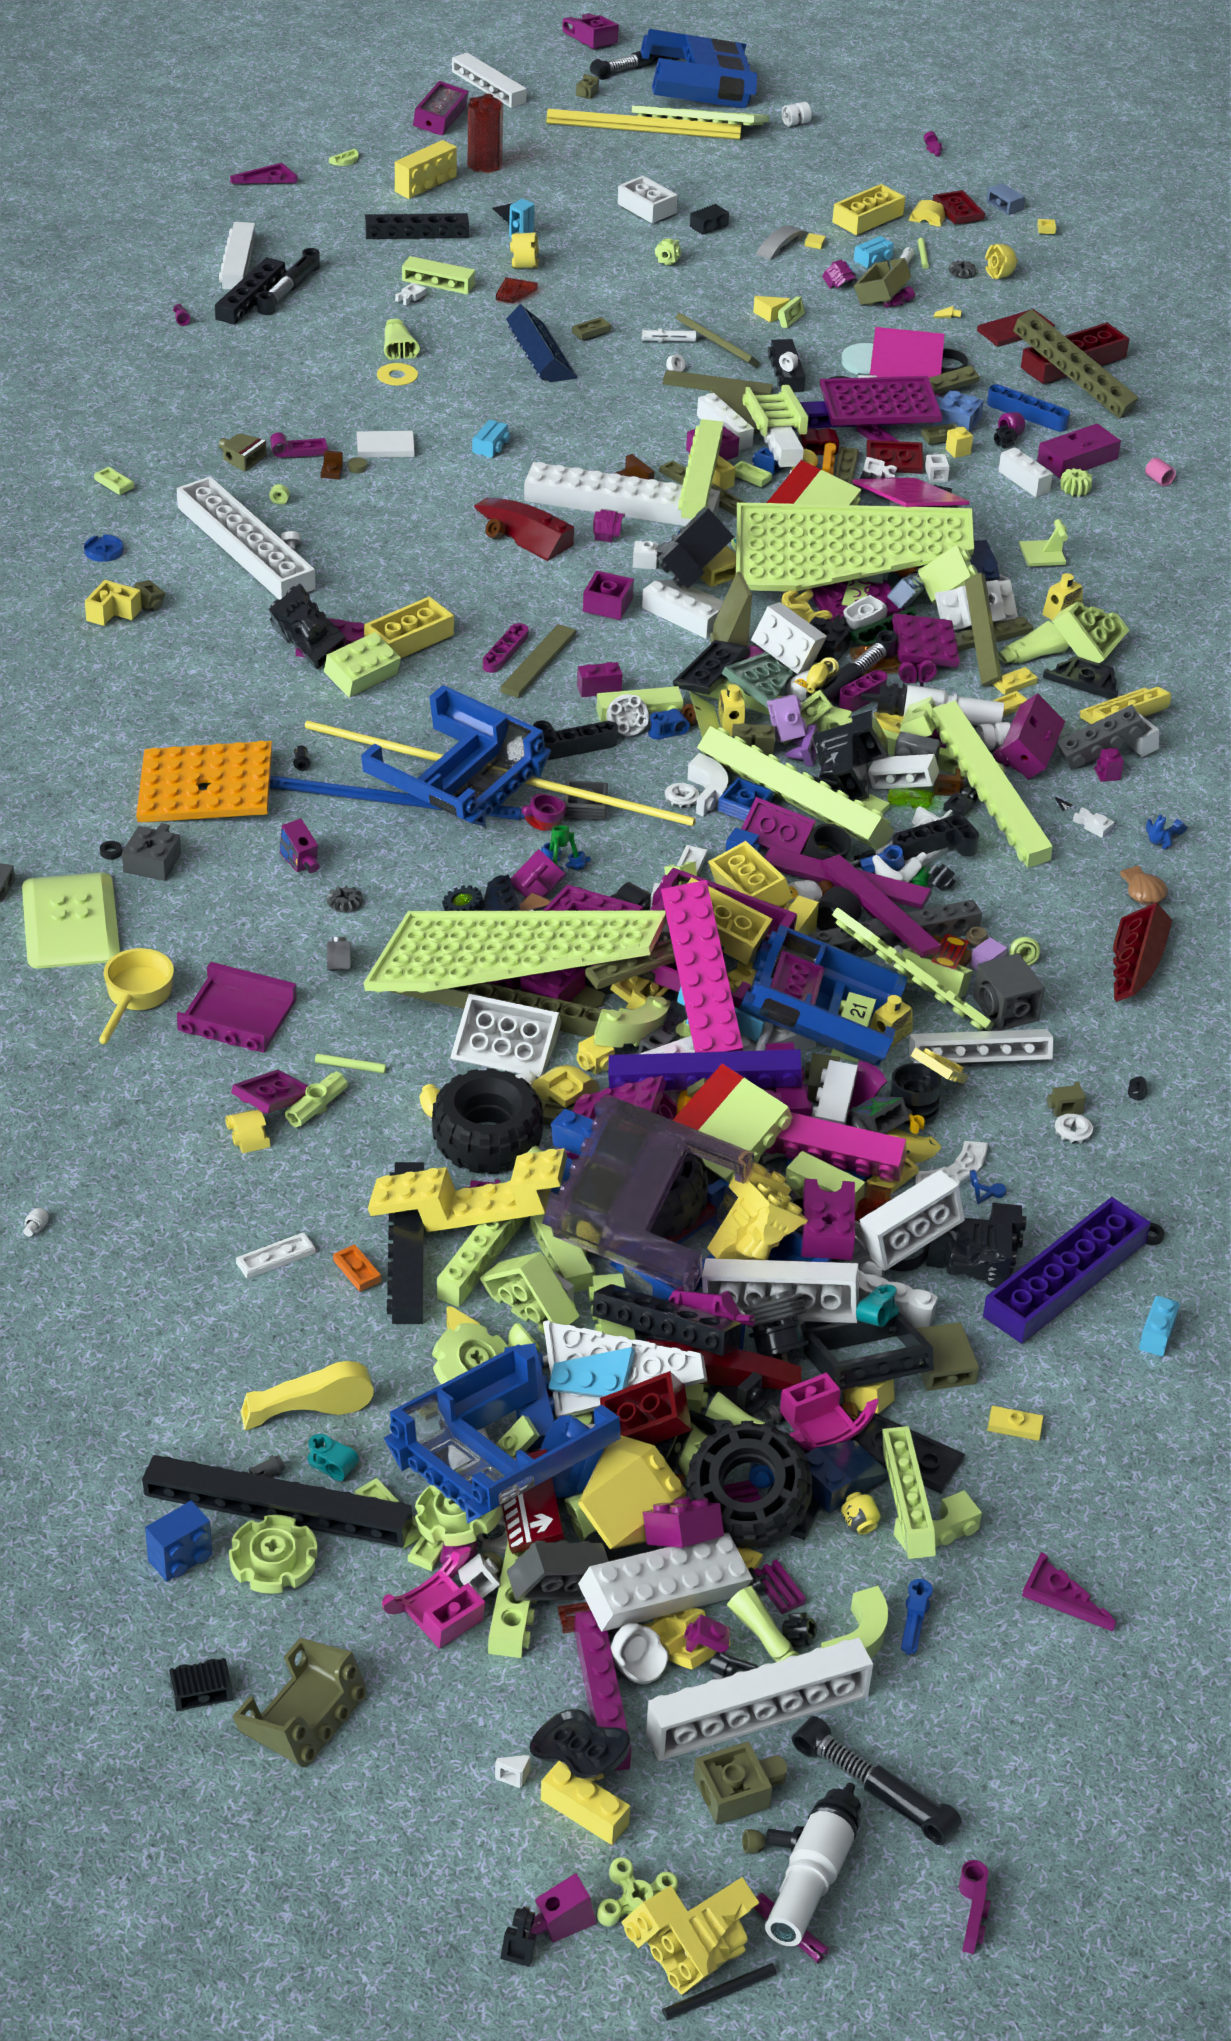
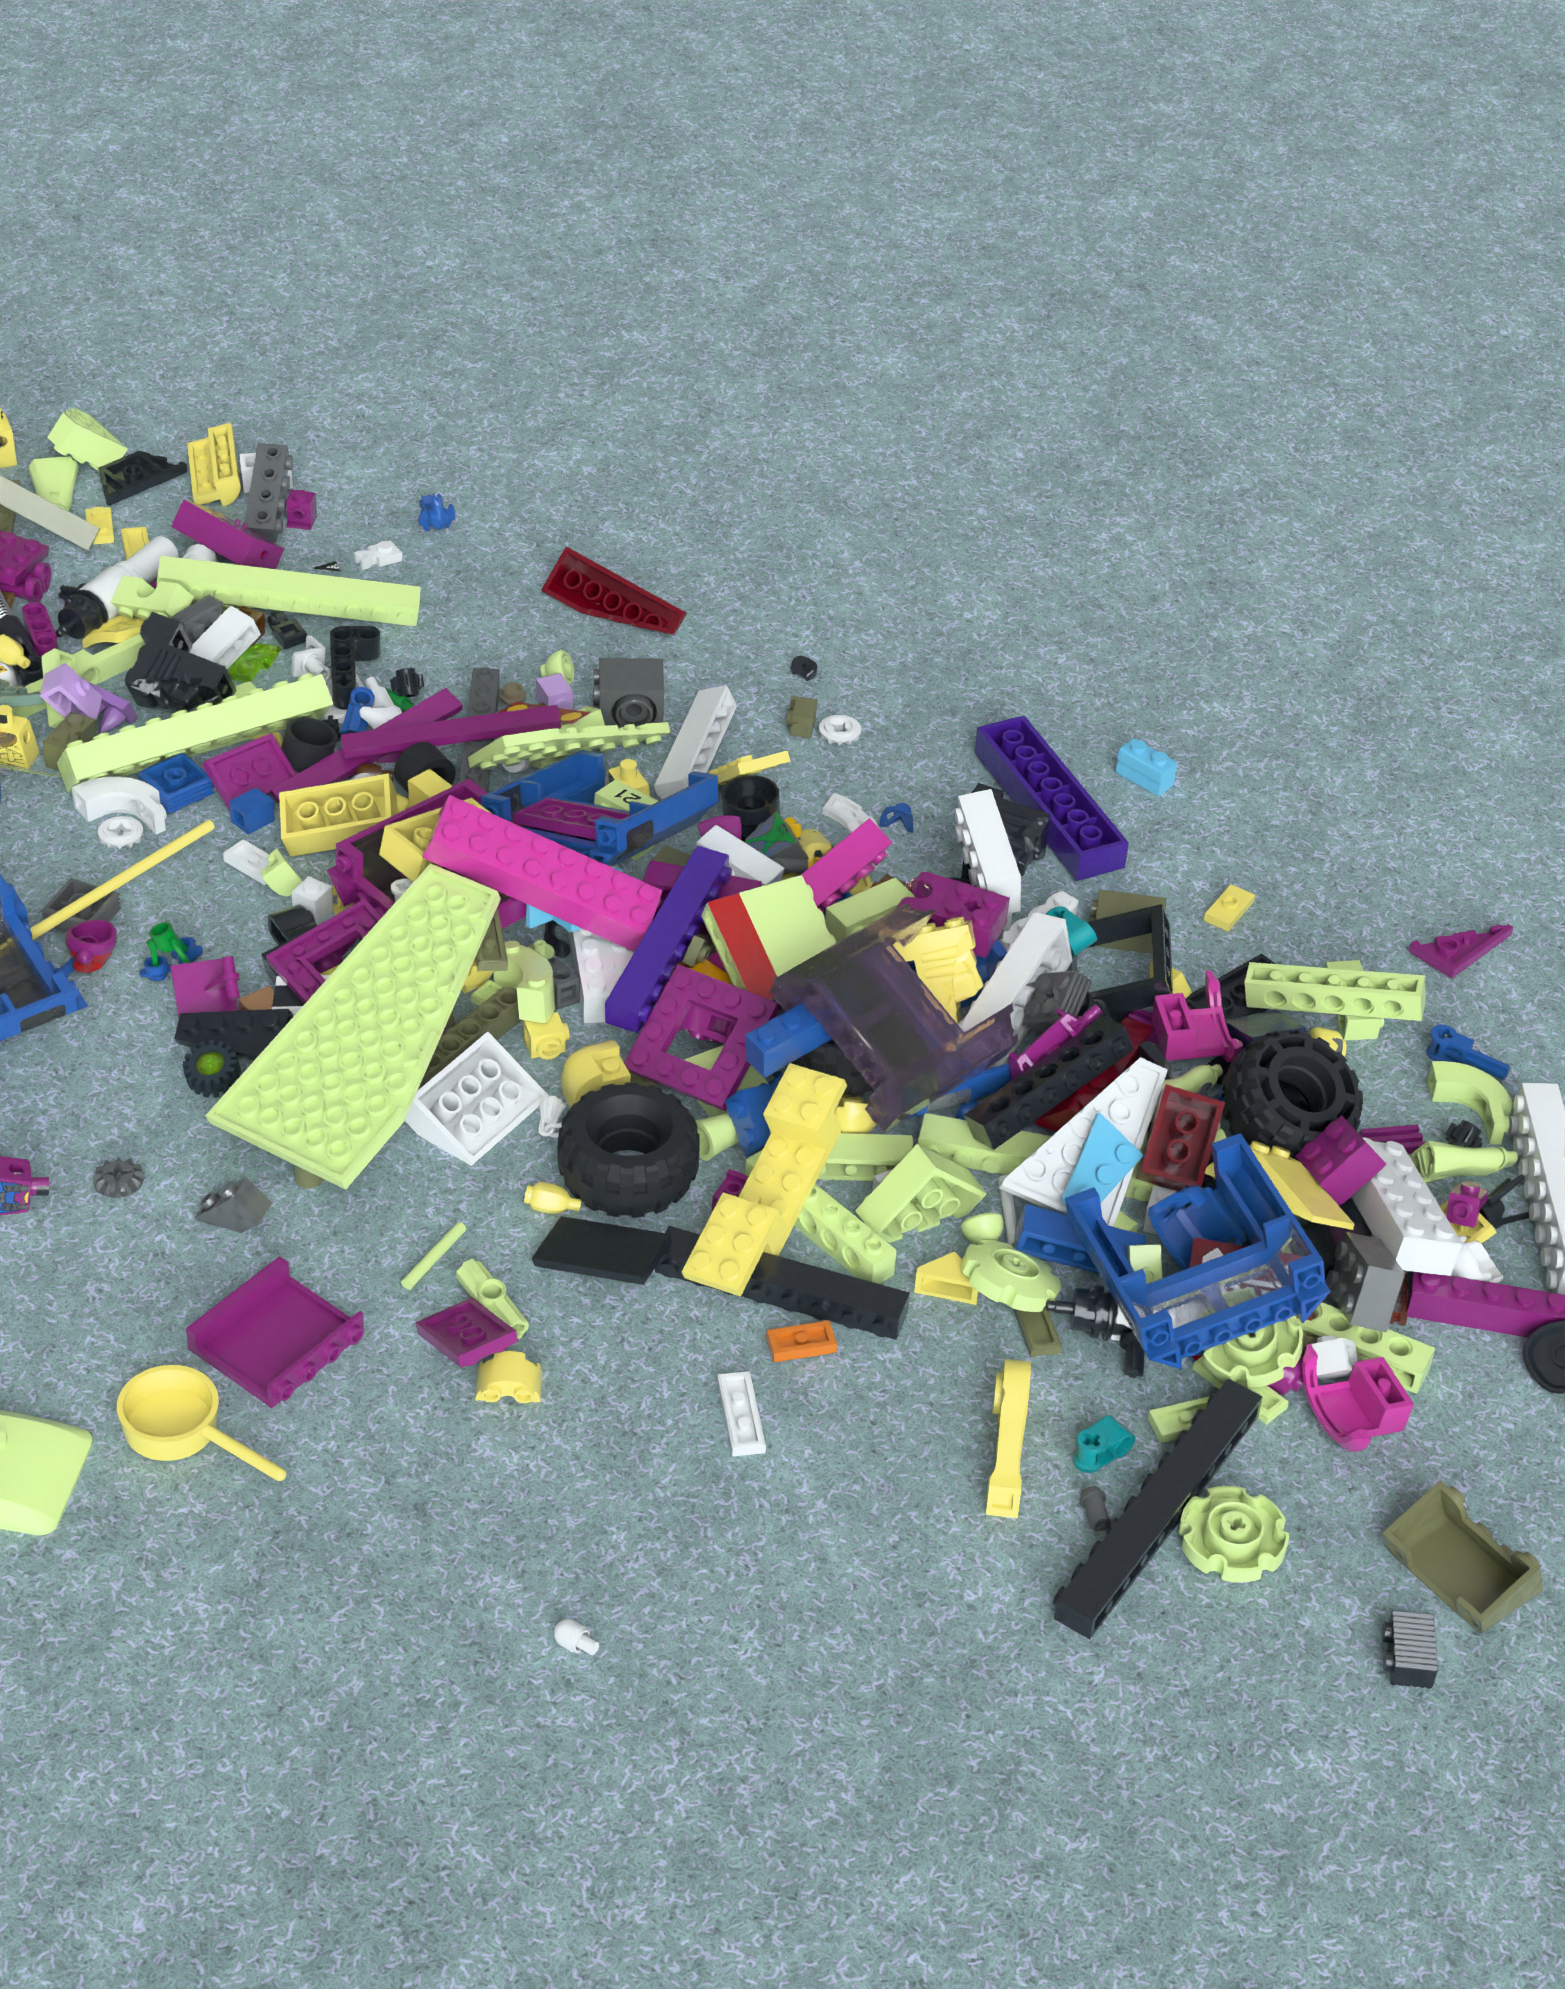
camera: 70 degrees left, 0 degrees up
(179, 1541) = (1204, 1607): blue brick -> none
(386, 1137) = (602, 1250): none -> black tile
(1144, 887) = (512, 554): medium nougat animal -> none

